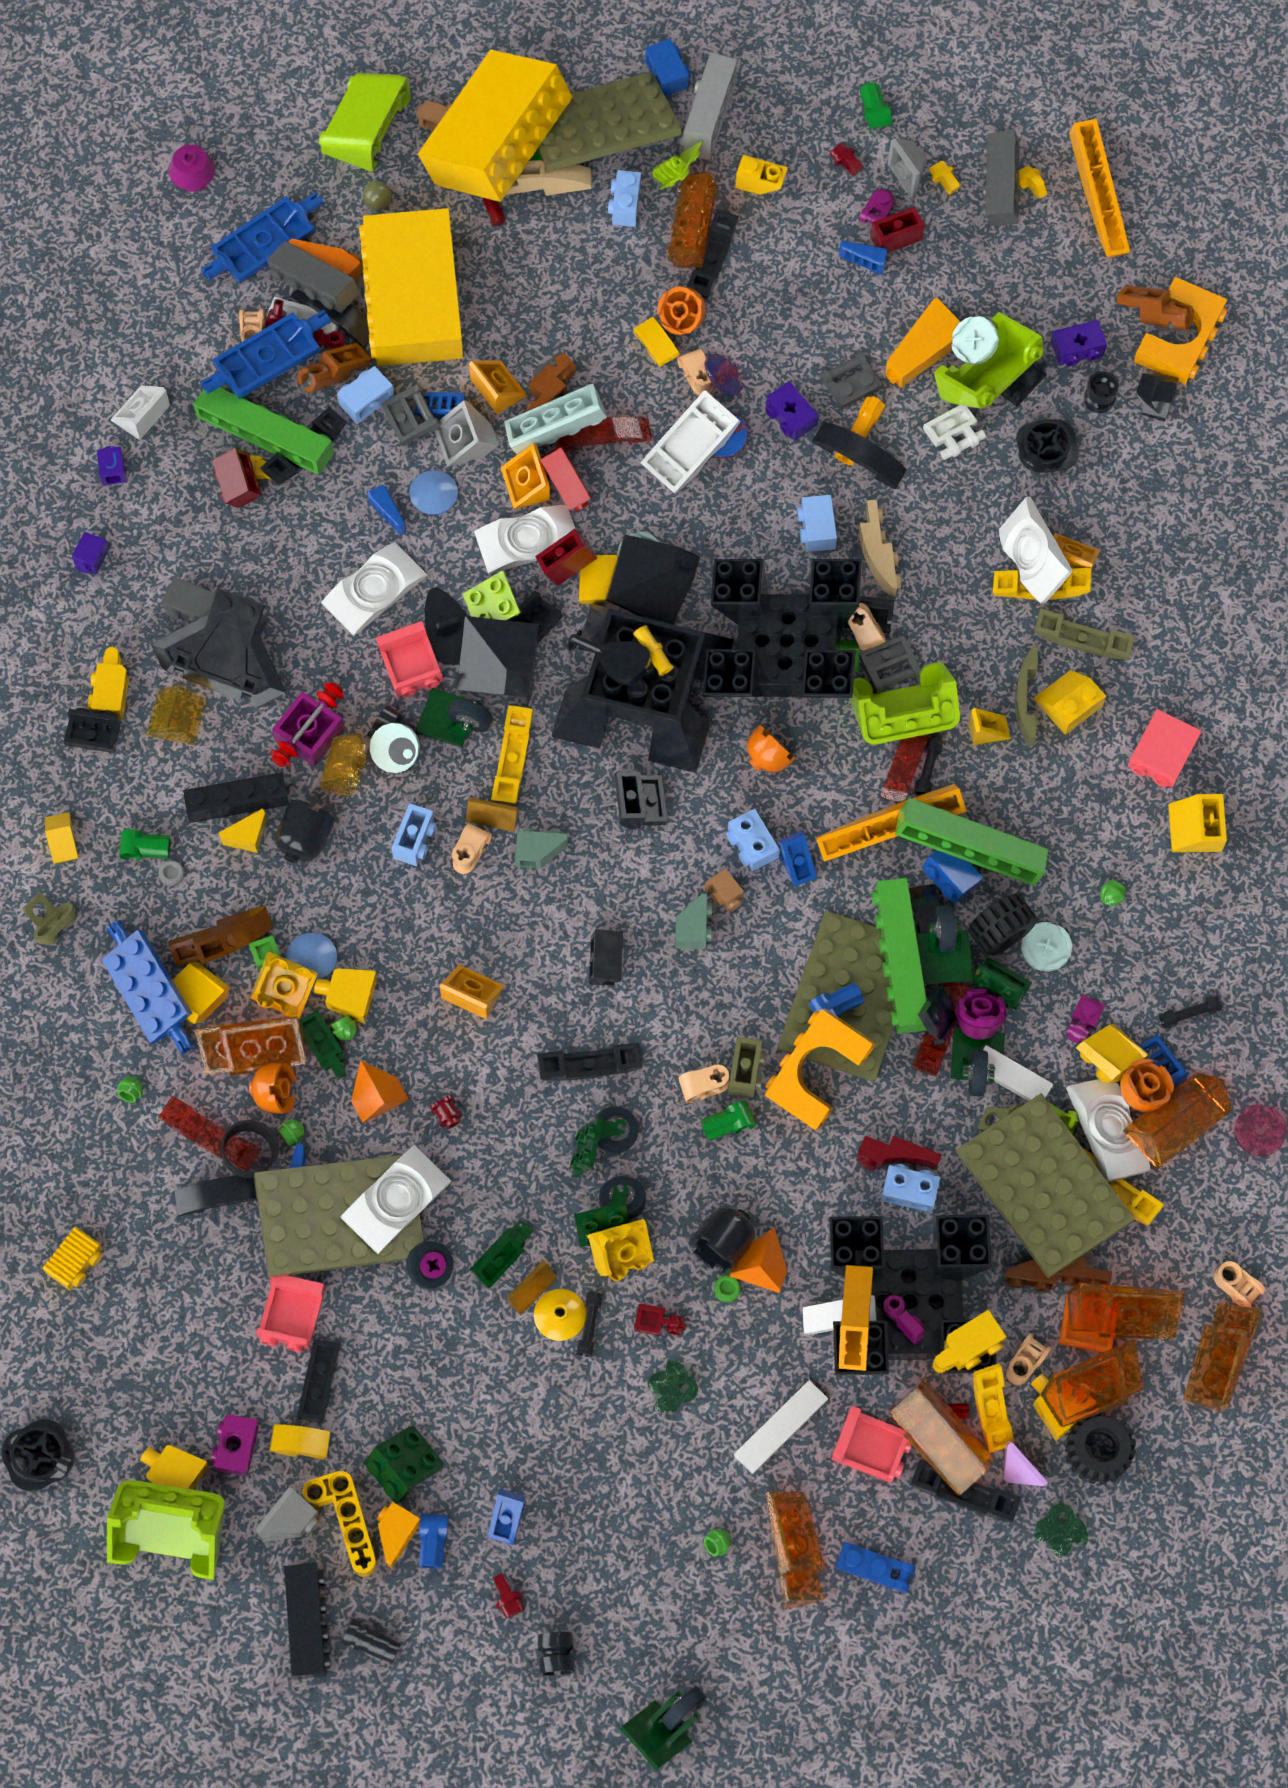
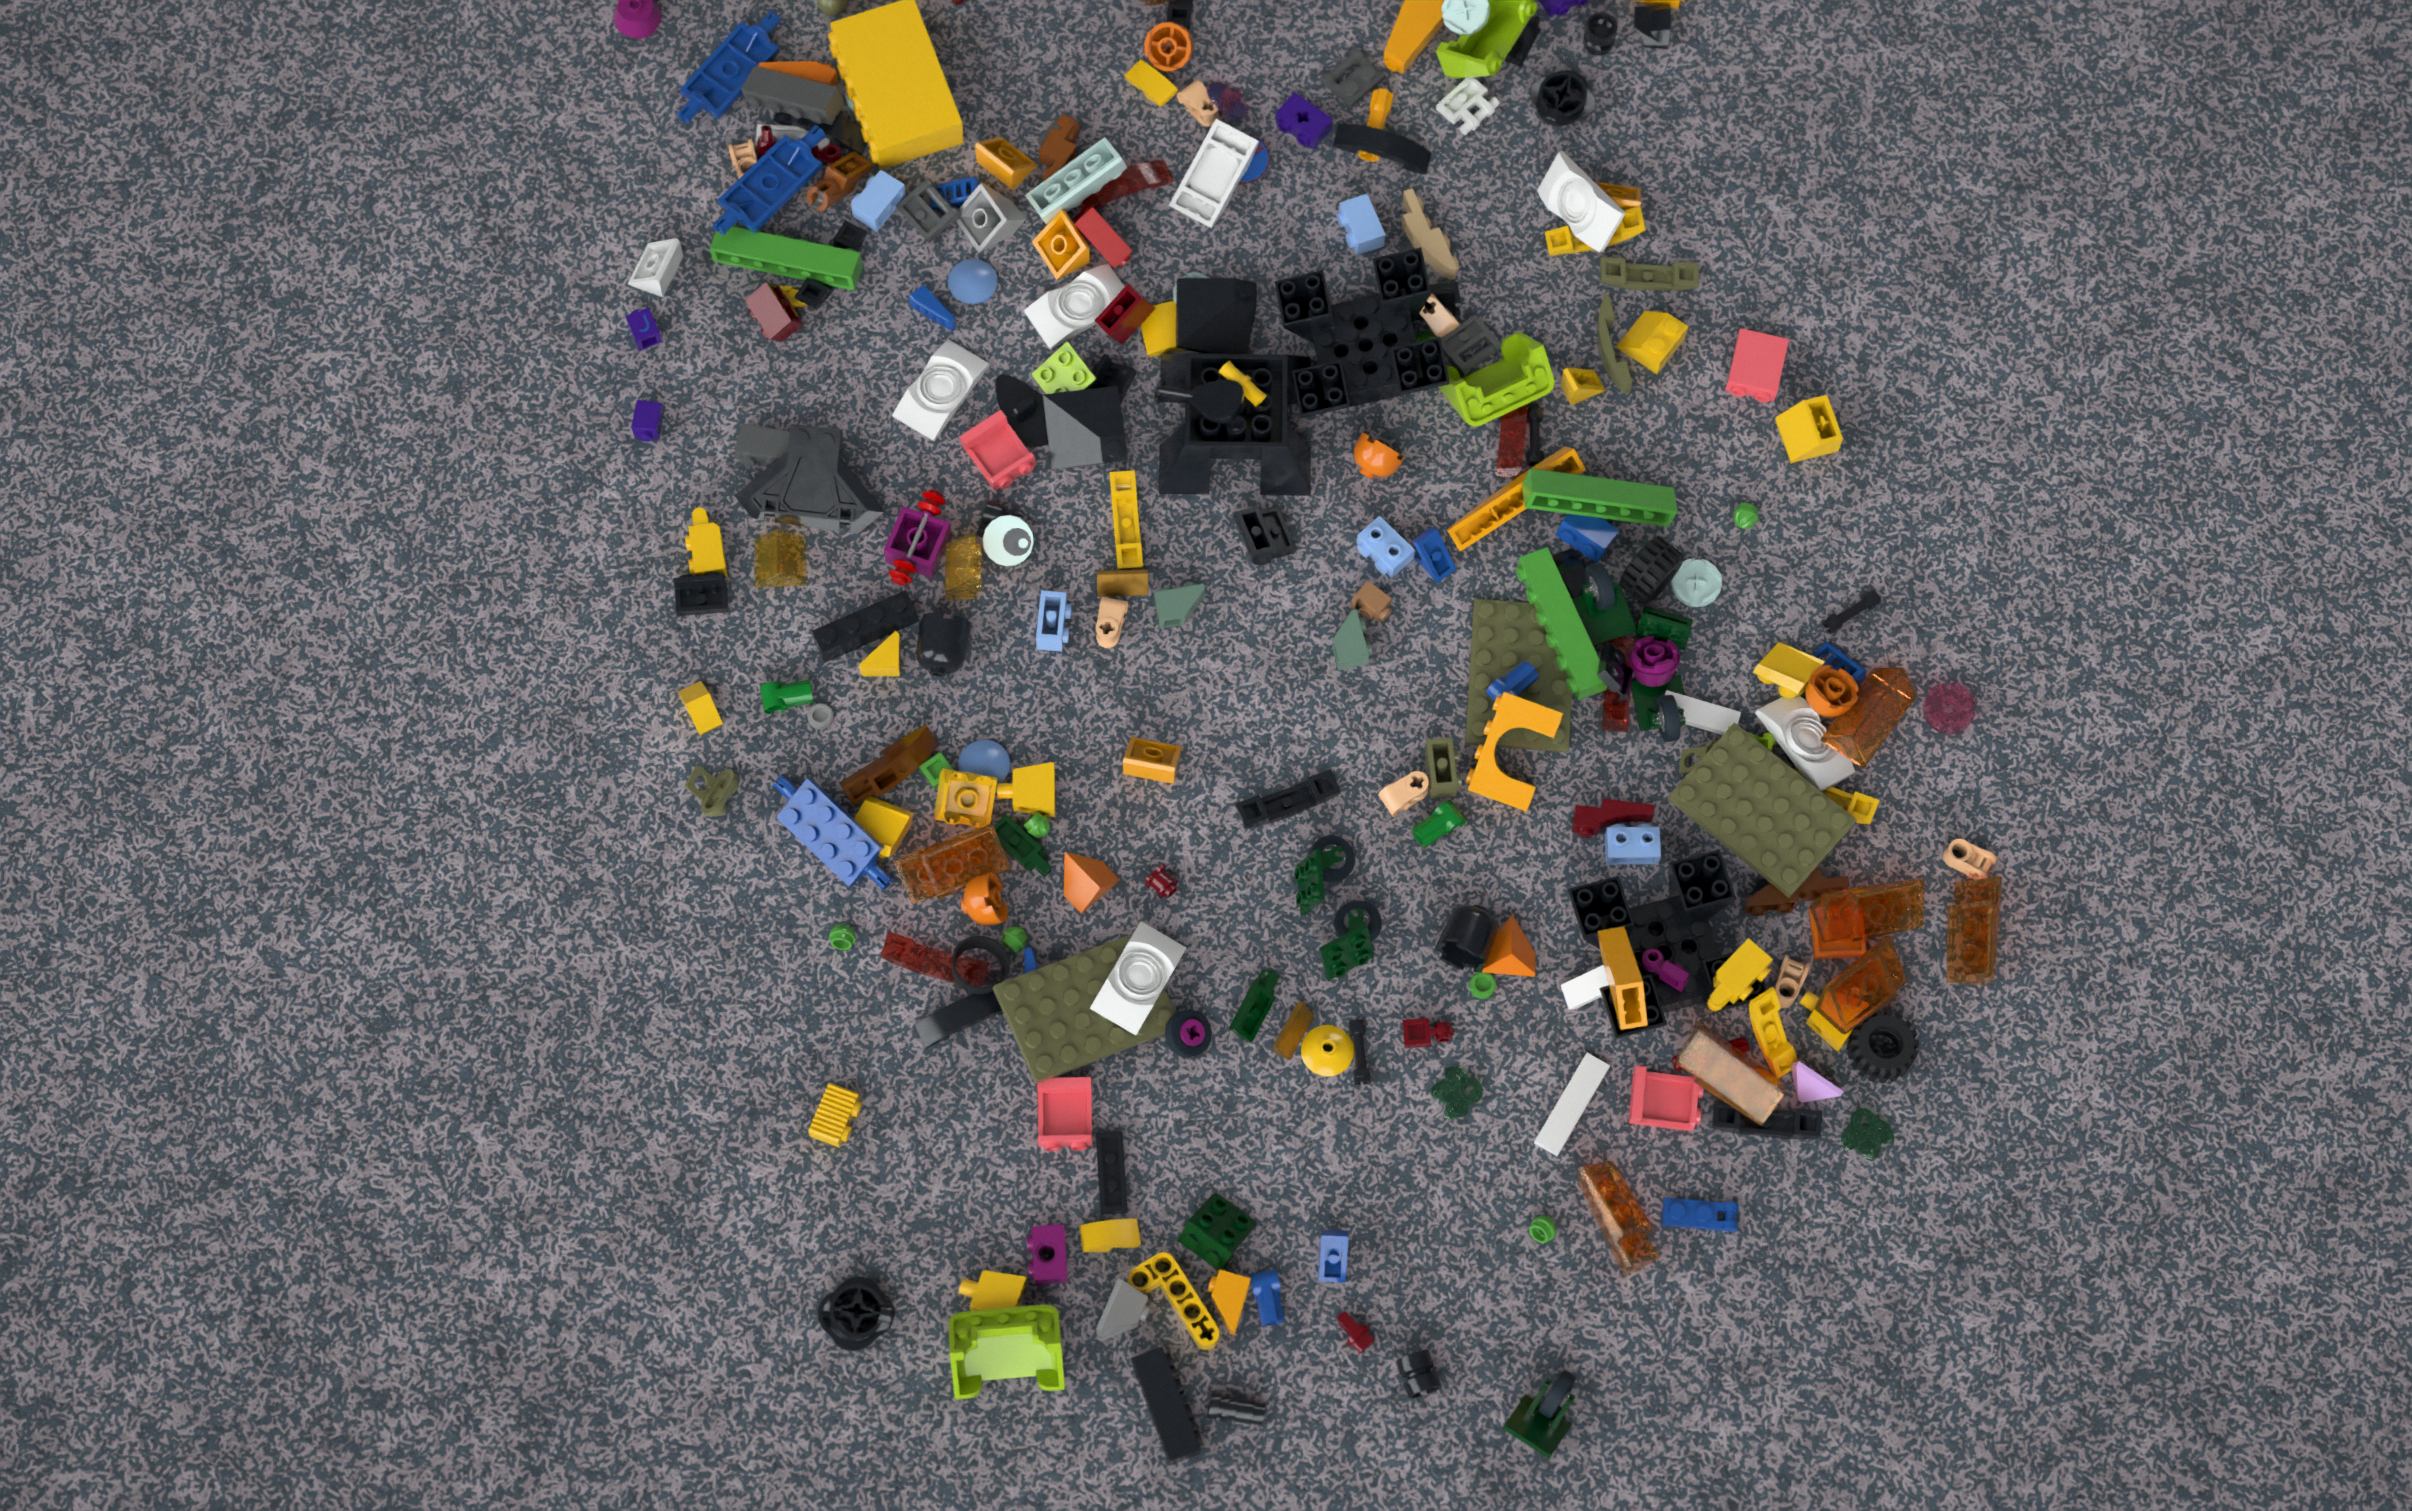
camera: 15 degrees left, 0 degrees up
(452, 718) = (1056, 498): dark green plate -> none
(605, 957) = (1274, 695): black hinge -> none
(621, 1249) = (1371, 972): yellow slope -> none
(1086, 1014) = (1753, 638): magenta plate -> none

